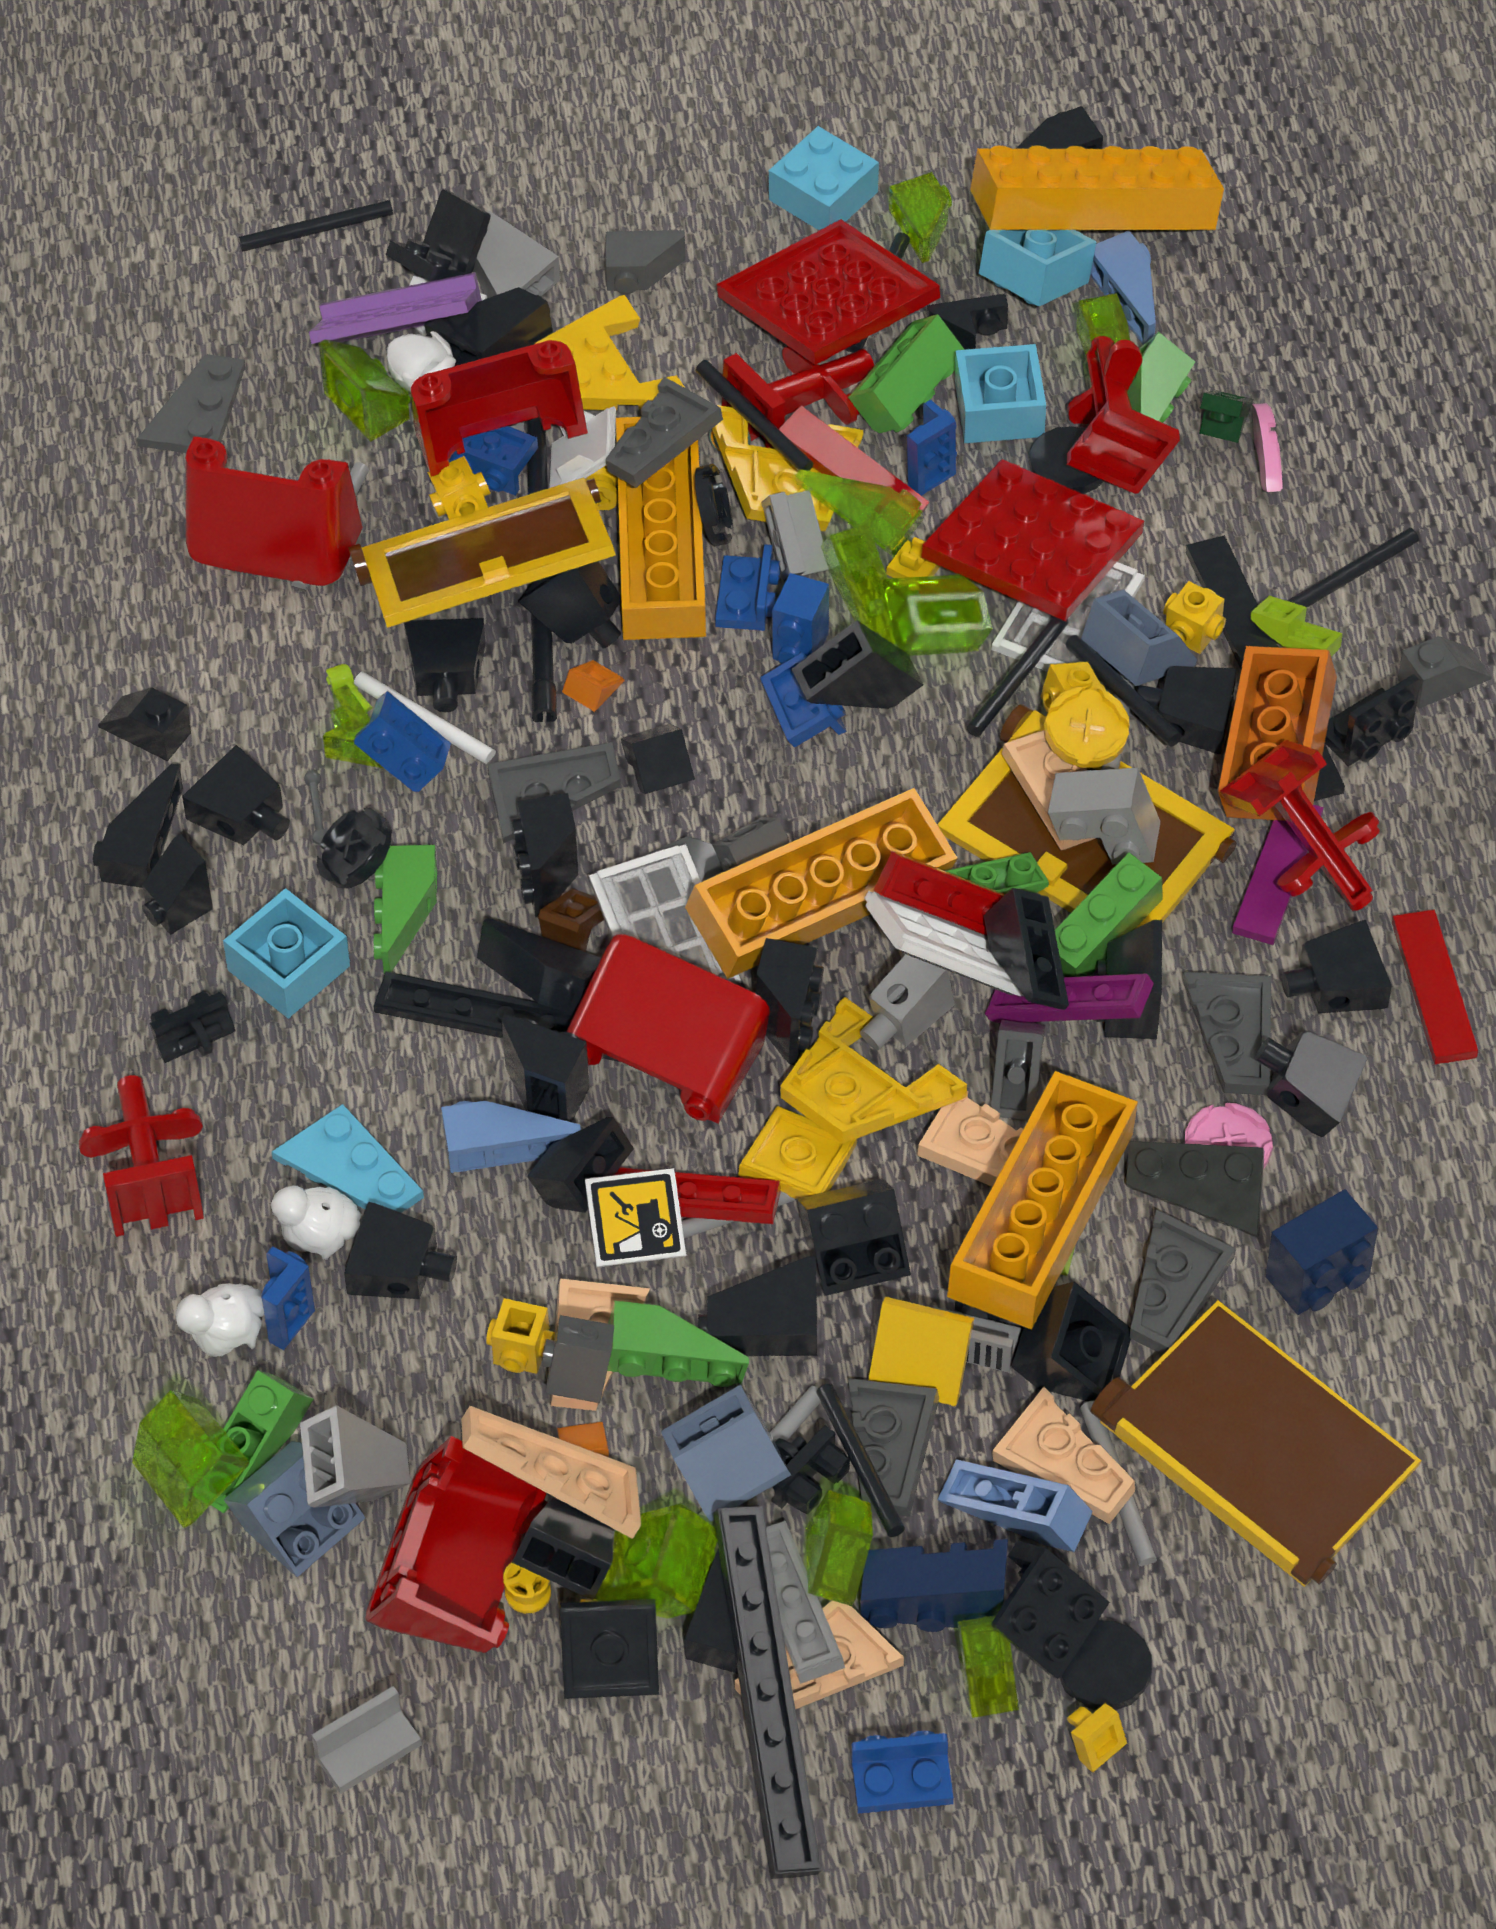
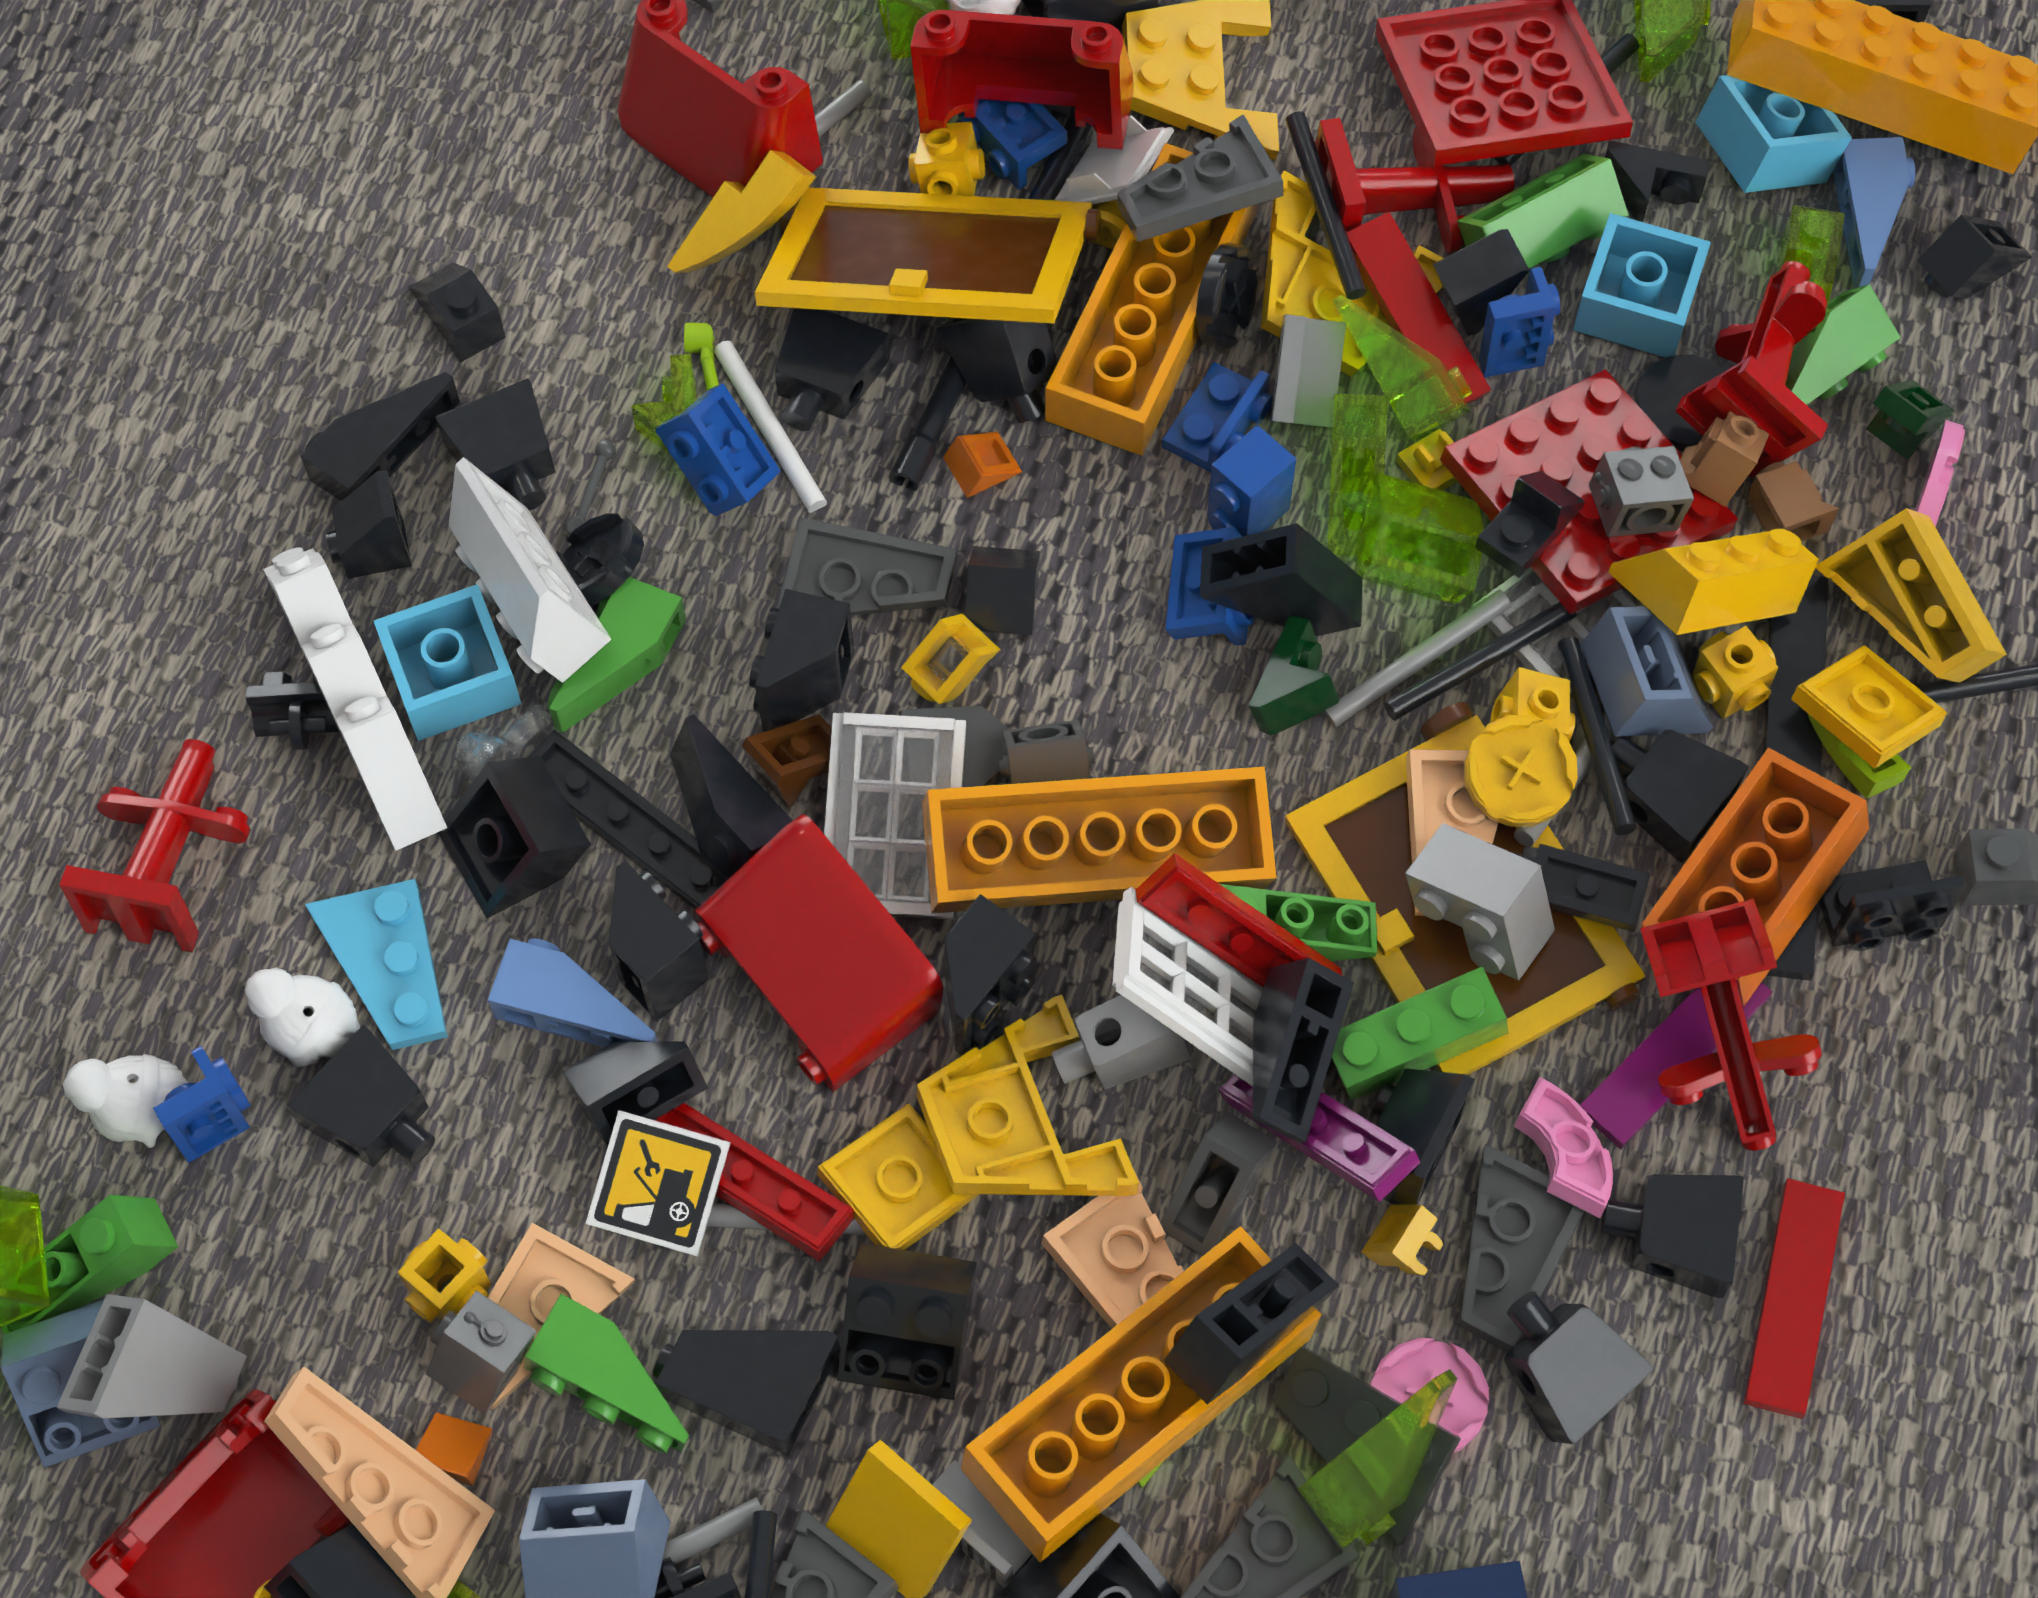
camera: 25 degrees right, 10 degrees up
(224, 976) = (355, 696): none -> white arch
(313, 869) = (522, 576): none -> white slope
(333, 577) = (743, 213): none -> yellow slope
(342, 1004) = (479, 748): none -> clear bar
(398, 1046) = (512, 833): none -> black slope
(647, 816) = (949, 659): none -> yellow window
(885, 427) = (1481, 275): none -> black slope
(897, 740) = (1290, 684): none -> dark green slope
(972, 692) = (1418, 658): none -> light grey bar
(1009, 569) = (1529, 522): none -> black slope
(1074, 520) = (1640, 491): none -> dark grey head
(1095, 1119) = (1249, 1322): none -> black slope
(1116, 480) = (1724, 457): none -> medium nougat window
(1156, 555) = (1720, 580): none -> yellow slope
(1158, 1052) = (1401, 1236): none -> yellow tile
(1175, 499) = (1790, 501): none -> medium nougat window
(1179, 783) = (1590, 886): none -> black hinge
(1214, 294) = (1971, 257): none -> black slope
(1221, 1186) = (1378, 1470): none -> clear neon green slope
(1242, 953) = (1574, 1155): none -> bright pink tile
(1291, 518) = (1917, 594): none -> yellow wedge
(1296, 602) = (1869, 706): none -> yellow tile

